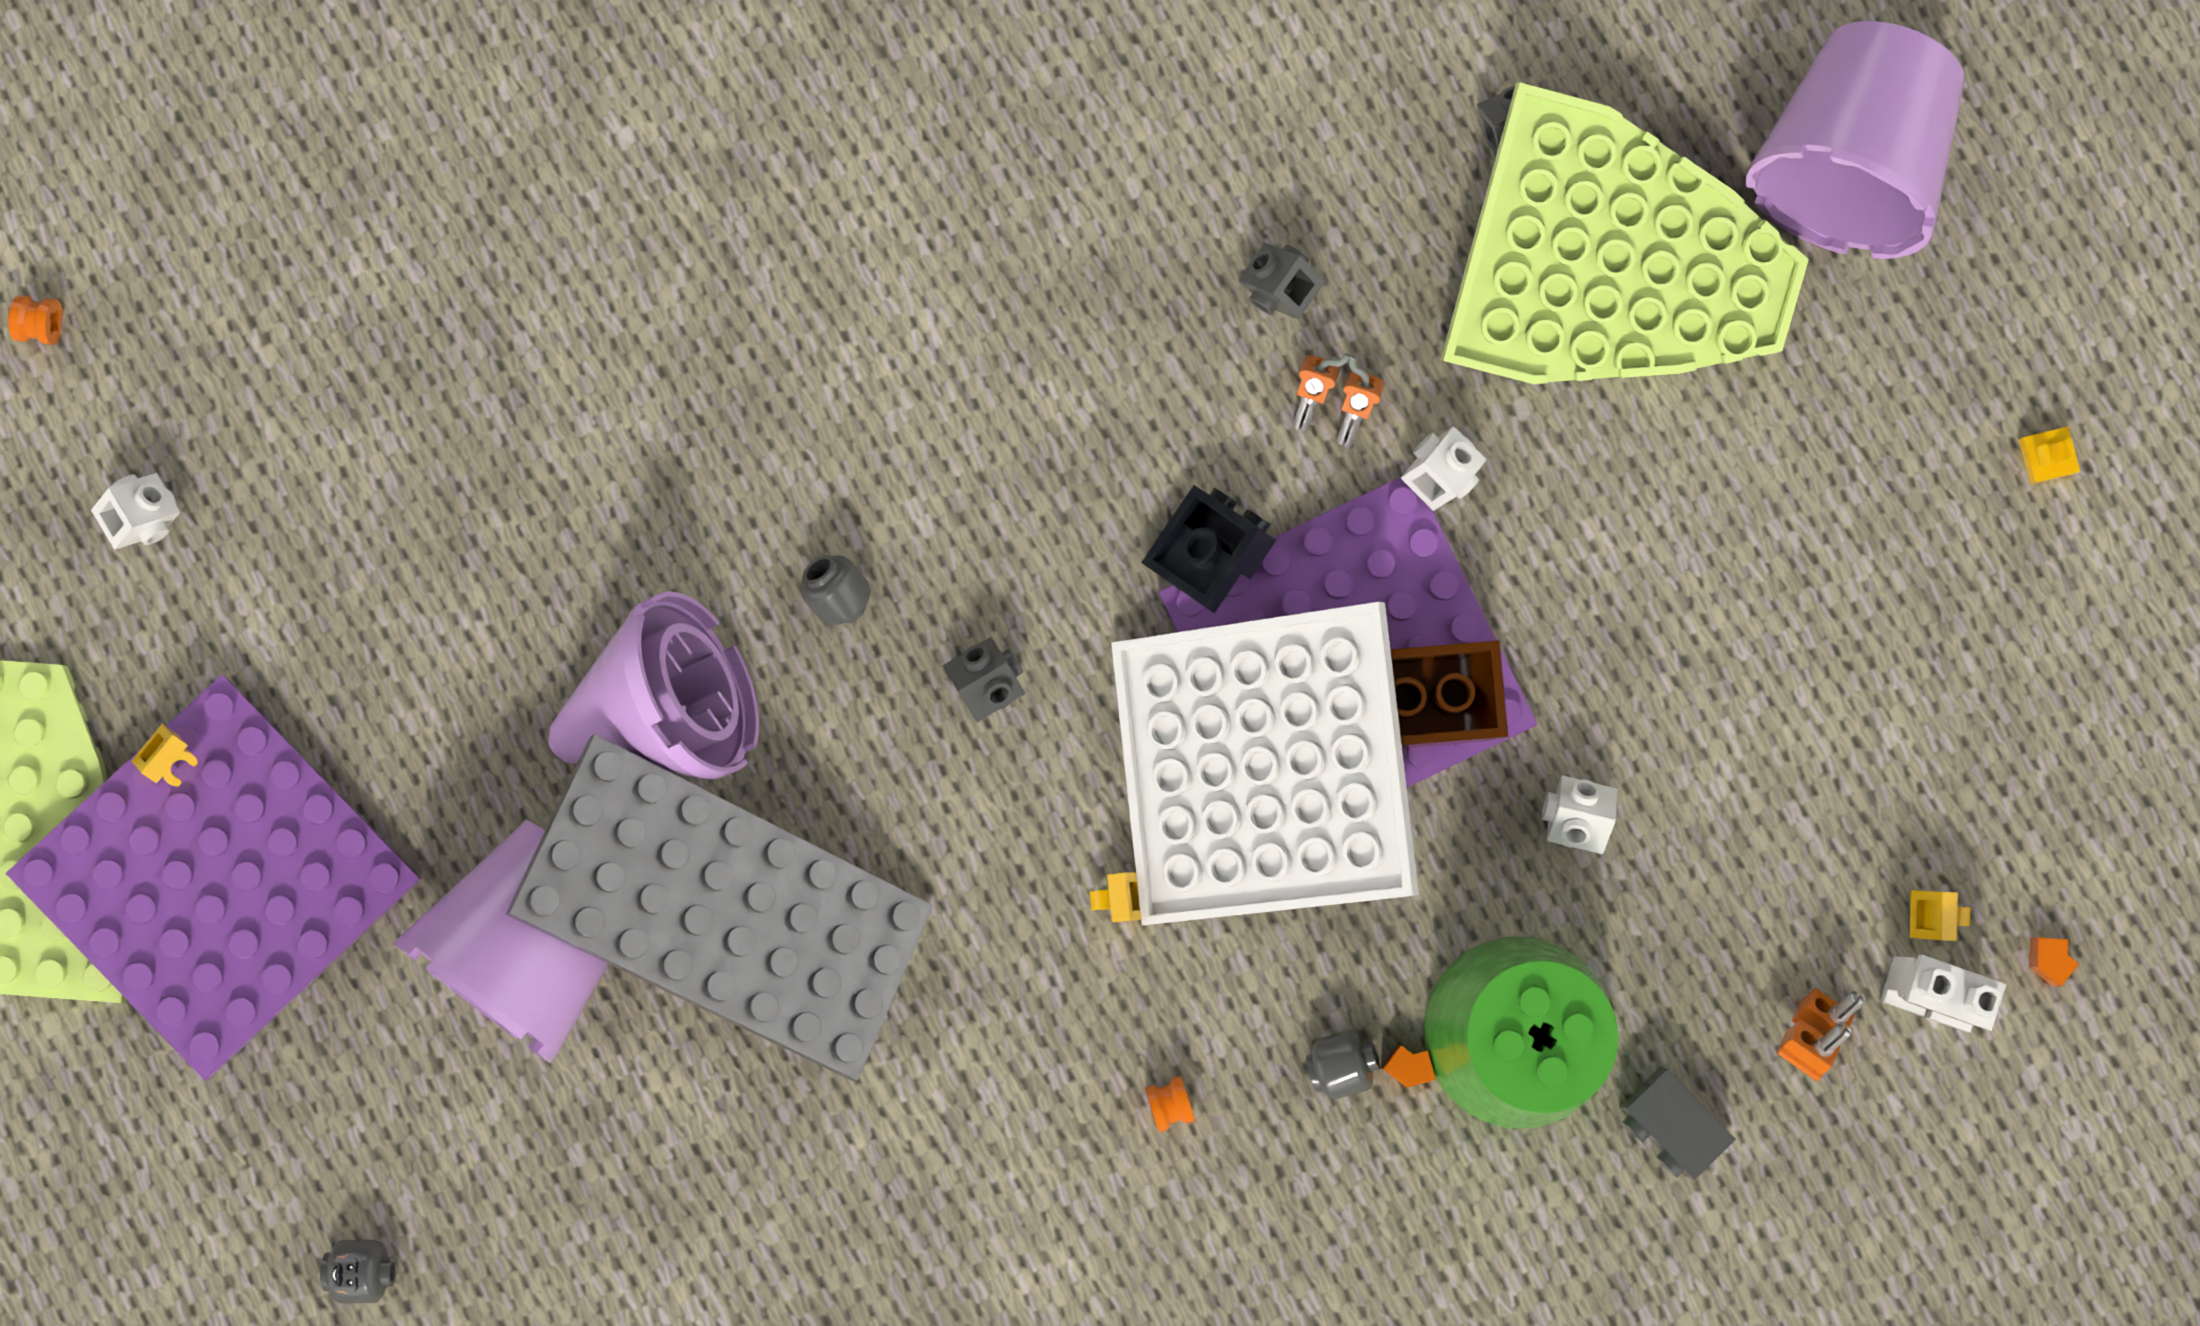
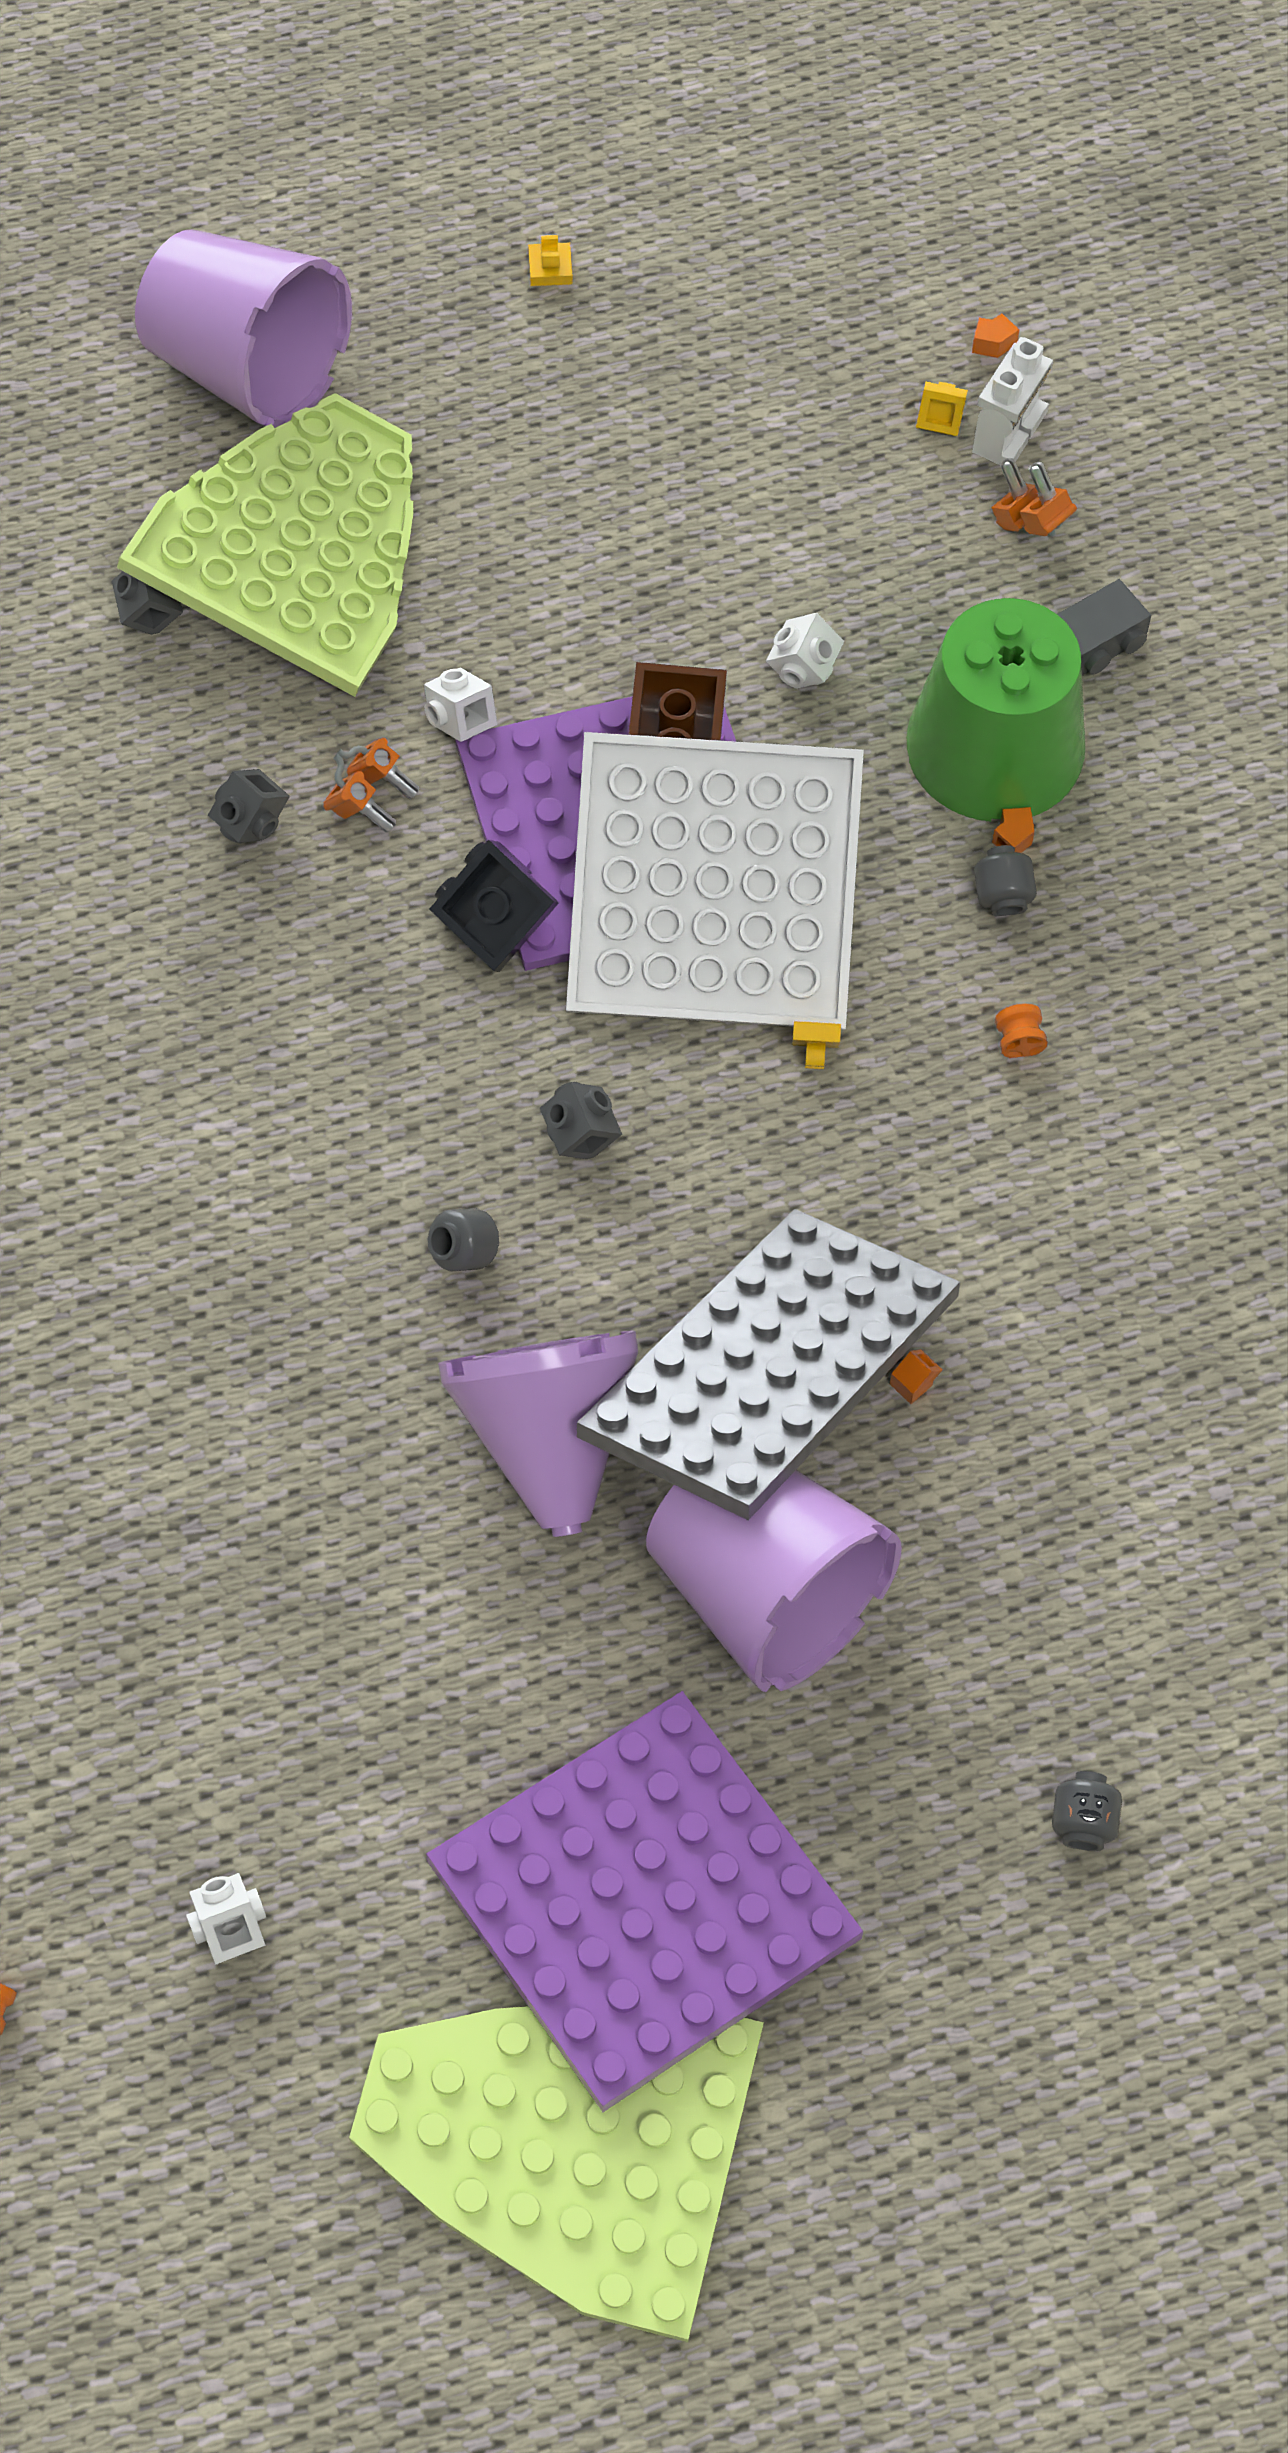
camera: 85 degrees left, 20 degrees down
(160, 753) = (505, 1906): yellow tile -> none
(771, 1055) = (914, 1375): none -> orange piece

